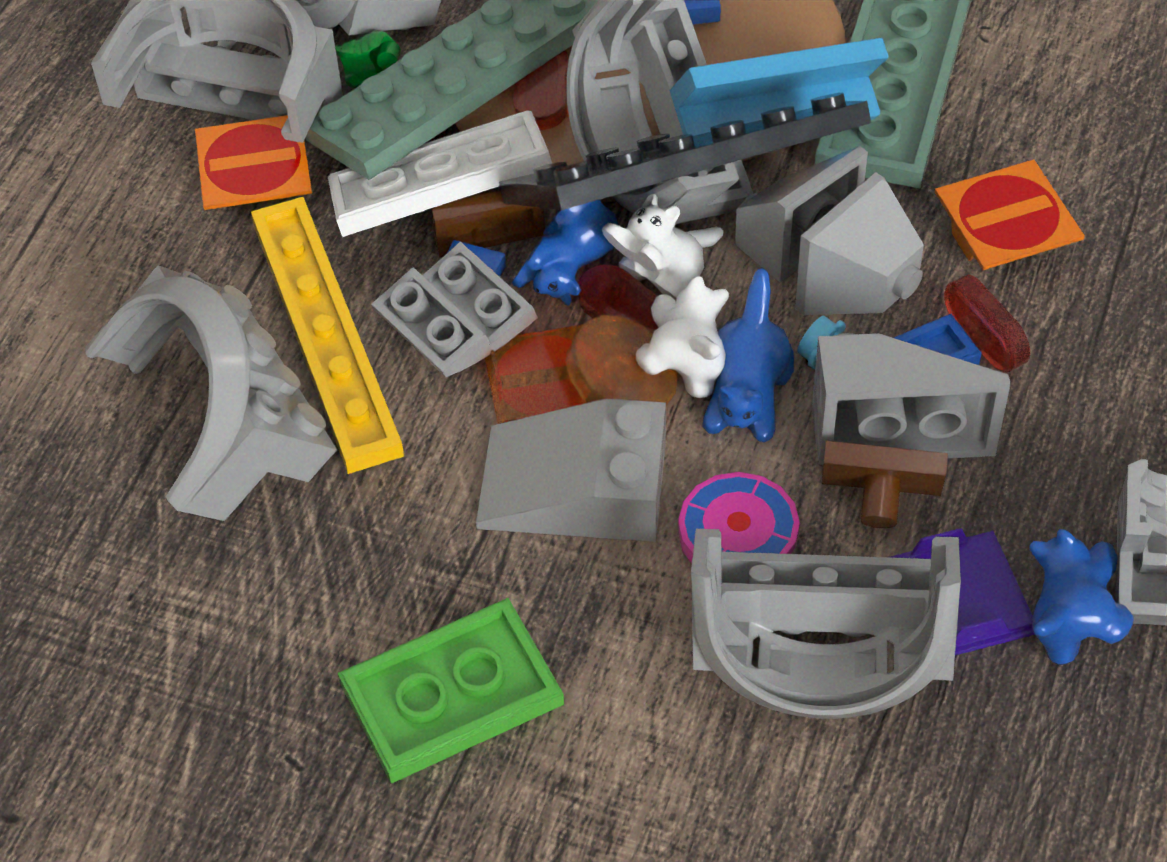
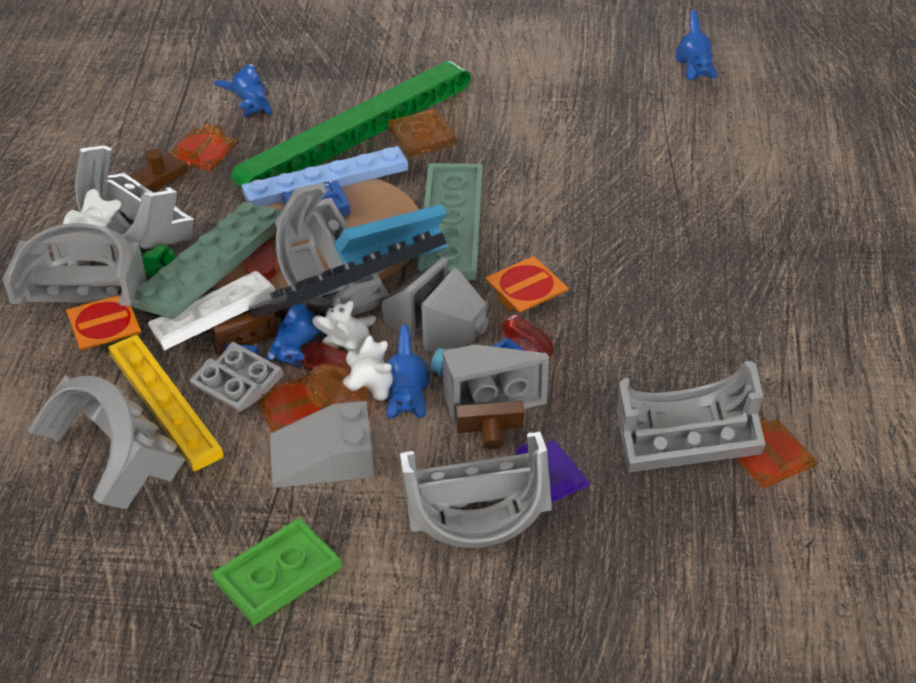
camera: 15 degrees left, 10 degrees down
(746, 510) = (428, 449): tile -> none
(1076, 596) = (606, 459): blue animal -> none

